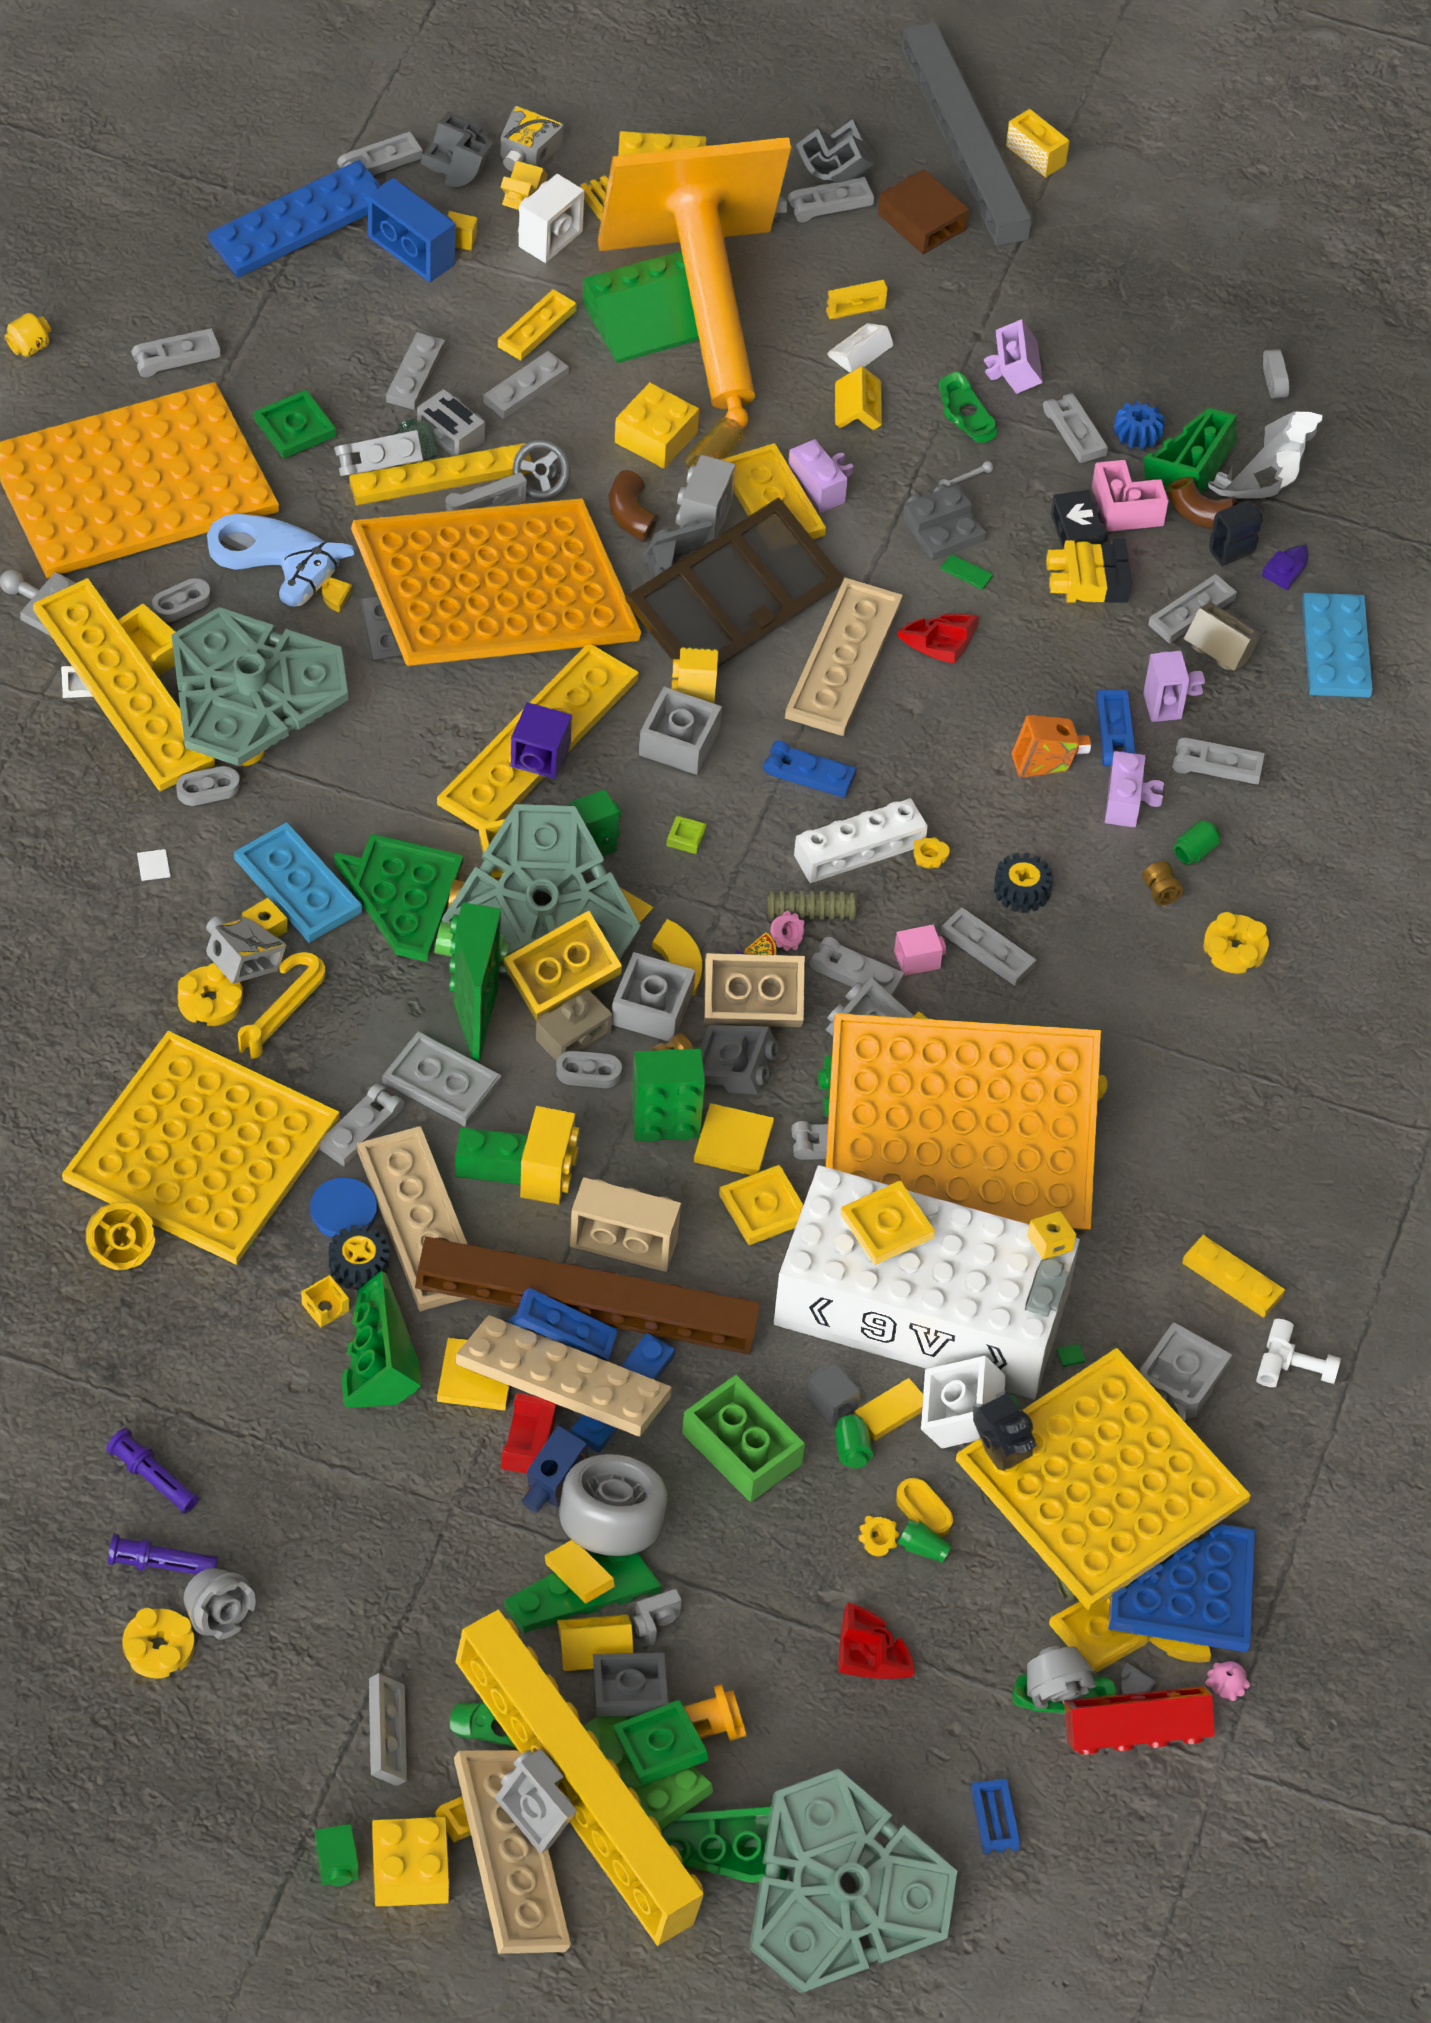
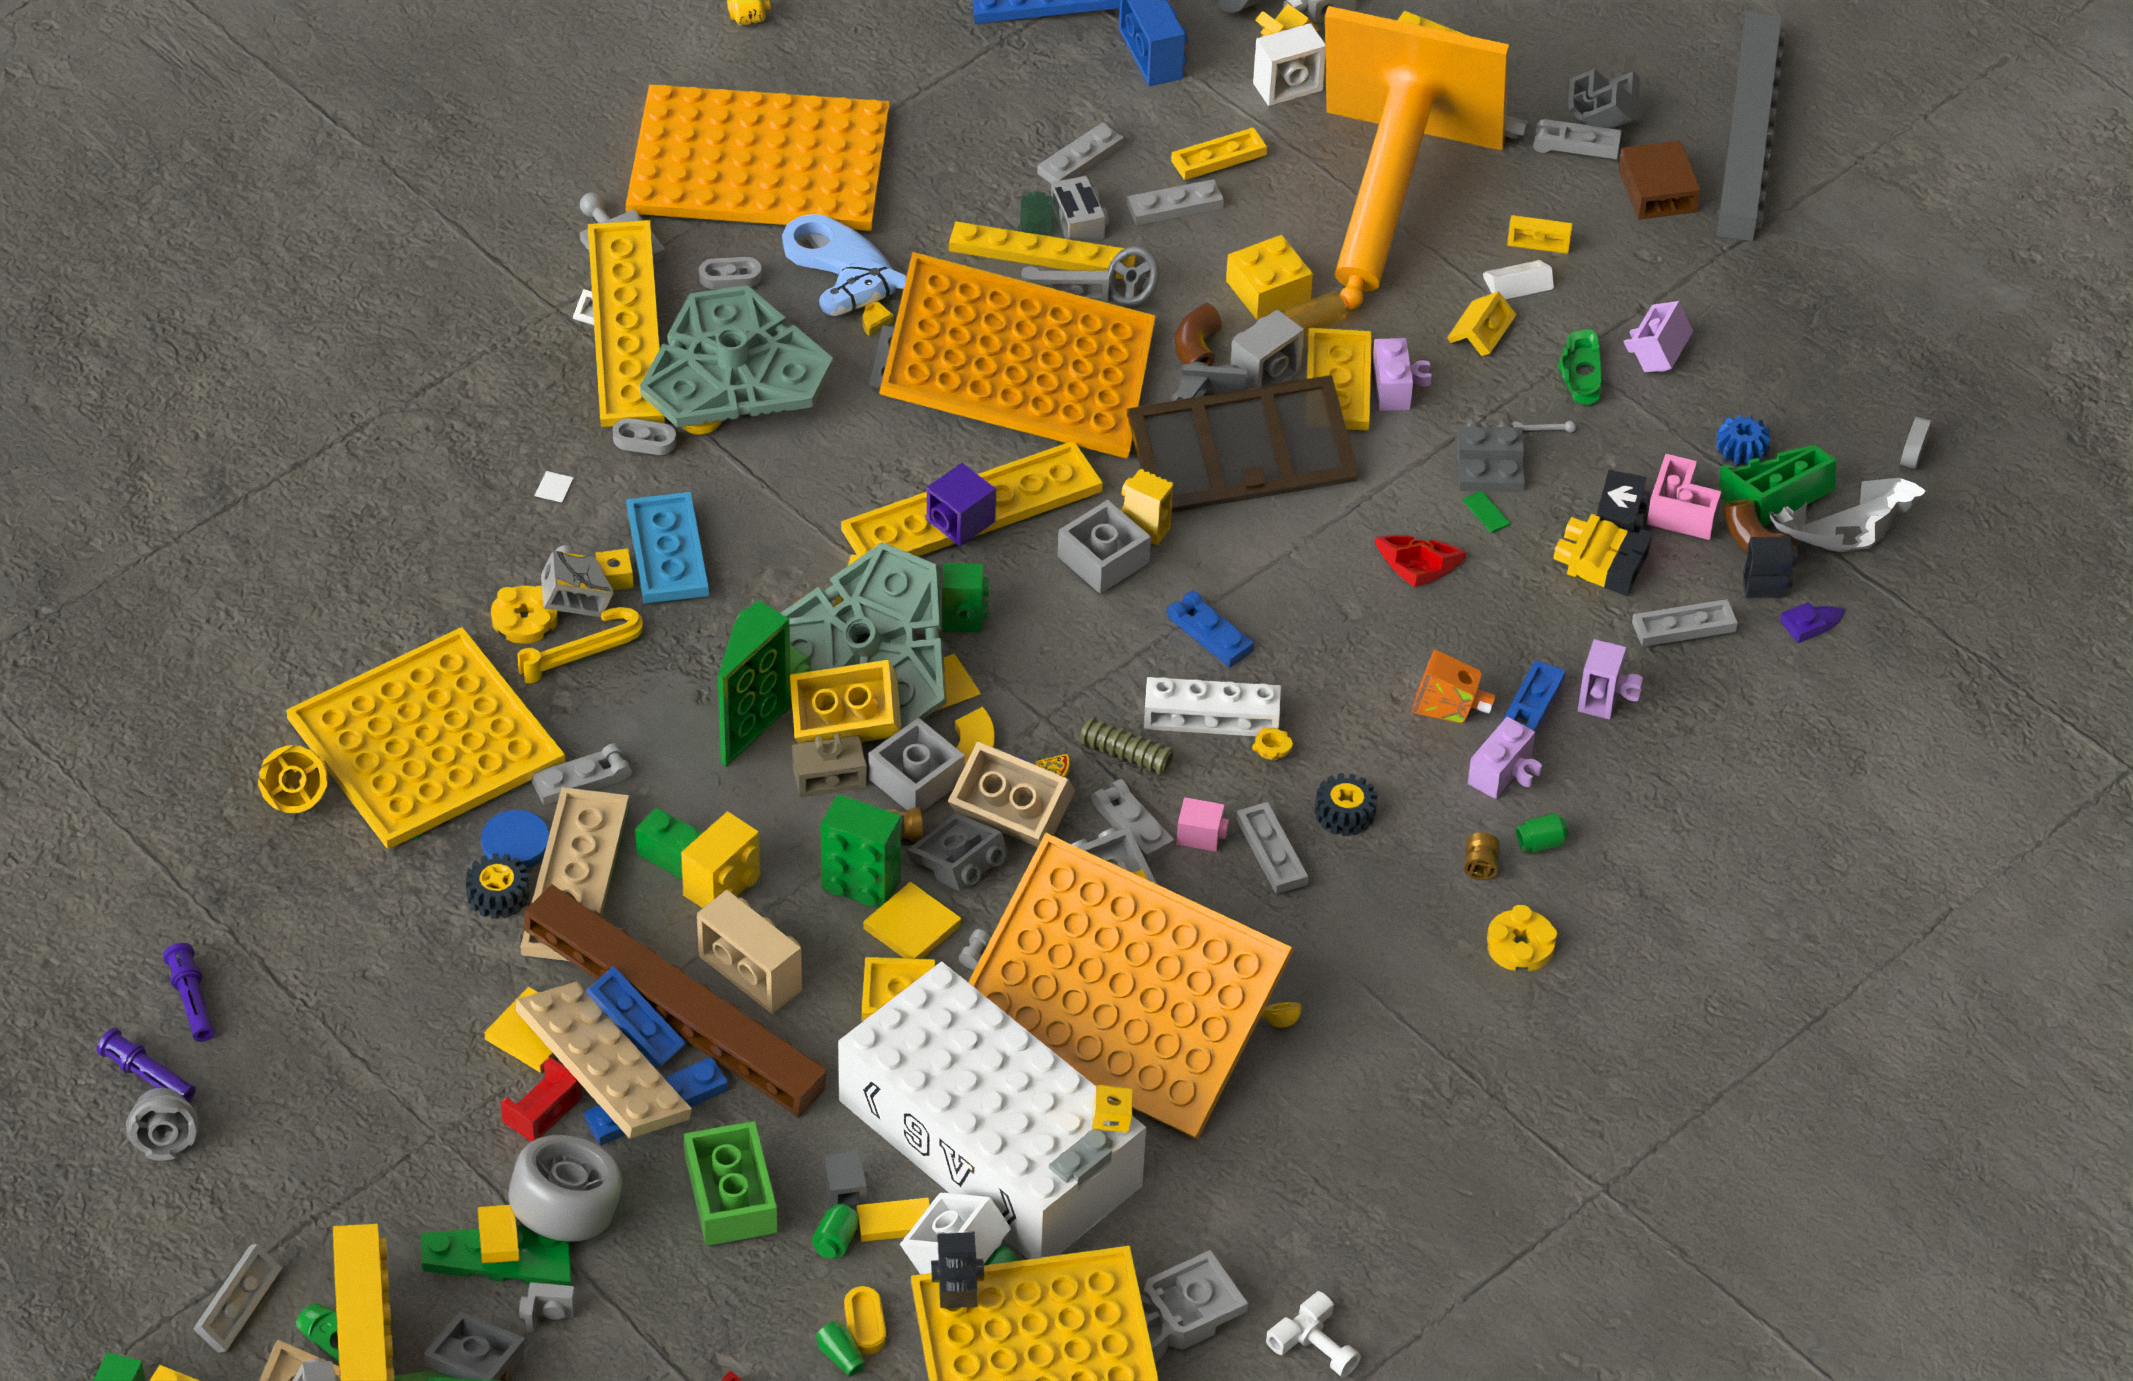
camera: 30 degrees right, 5 degrees down
(150, 637) = (672, 288): yellow panel -> none
(168, 1658) = (89, 1122): yellow plate -> none
(175, 352) = (871, 64): light grey plate -> none
(294, 424) = (936, 161): green plate -> none
(325, 1291) = (442, 902): yellow piece -> none
(380, 453) = (994, 211): plate -> none
(382, 1354) = (460, 974): green wedge -> none
(403, 890) = (755, 572): green wing -> none
(441, 1078) = (681, 765): light grey tile -> none
(464, 230) = (1202, 49): yellow piece -> none
(551, 1467) = (539, 1121): dark blue torso -> none
(588, 1069) = (816, 799): light grey plate -> none
(591, 1636) = (476, 1299): yellow panel -> none
(642, 307) = (1321, 170): green slope -> none
(686, 834) = (1054, 642): lime tile -> none
(792, 931) = (1096, 760): bright pink animal -> none
(843, 657) = (1310, 541): tan plate -> none
(884, 1535) = (793, 1332): yellow animal -> none
(887, 1222) = (962, 1033): yellow plate -> none
(1037, 143) = (1814, 156): yellow panel -> none
(1070, 1355) = (1101, 1241): green window -> none
(1076, 428) = (1679, 422): light grey plate -> none
(1218, 760) = (1616, 769): light grey plate -> none
(1222, 637) = (1692, 656): dark tan brick -> none
(1233, 1276) = (1309, 1238): yellow plate -> none
(1336, 645) = (1811, 709): dark azure plate -> none

